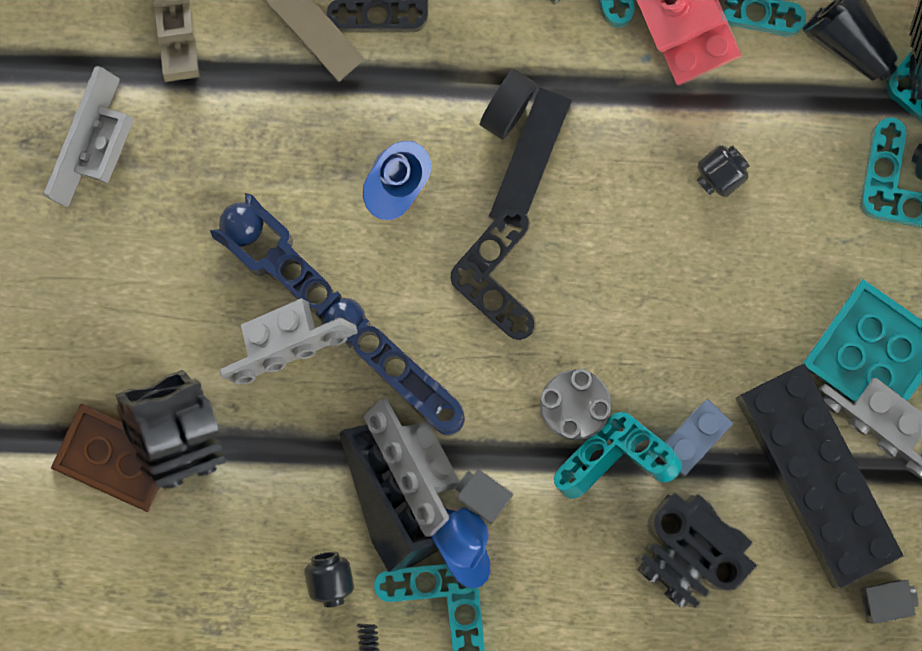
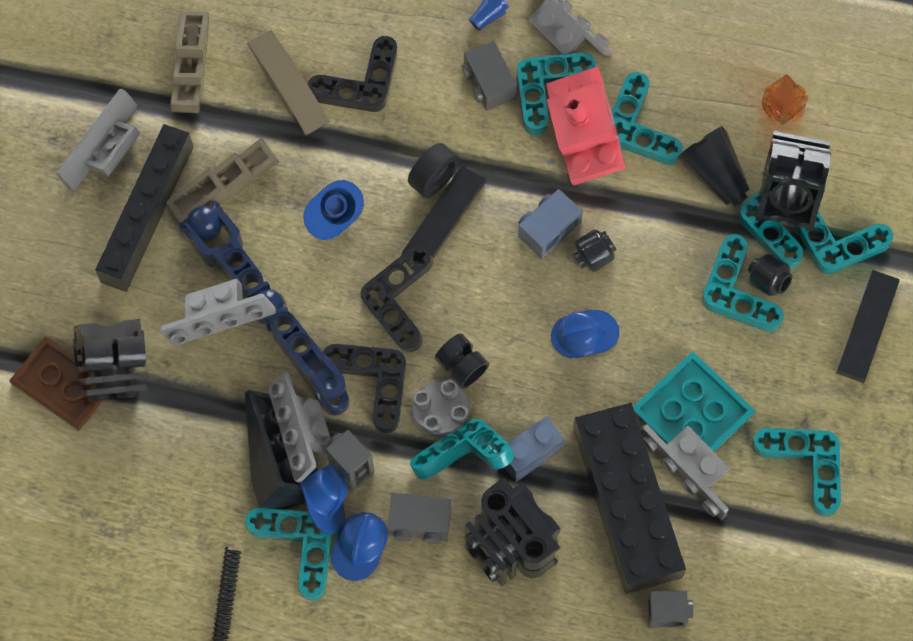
camera: 15 degrees right, 15 degrees down
(163, 216) = (144, 208): none -> black brick
(250, 162) = (224, 180): none -> dark tan slope
(329, 579) = (210, 506): black head -> none
(500, 377) = (385, 377): none -> black beam
(513, 590) = (359, 546): none -> blue piece
(578, 546) = (419, 518): none -> dark grey brick
(590, 343) = (459, 358): none -> black wheel
(661, 145) = (549, 222): none -> sand blue brick
(728, 276) = (584, 333): none -> blue piece

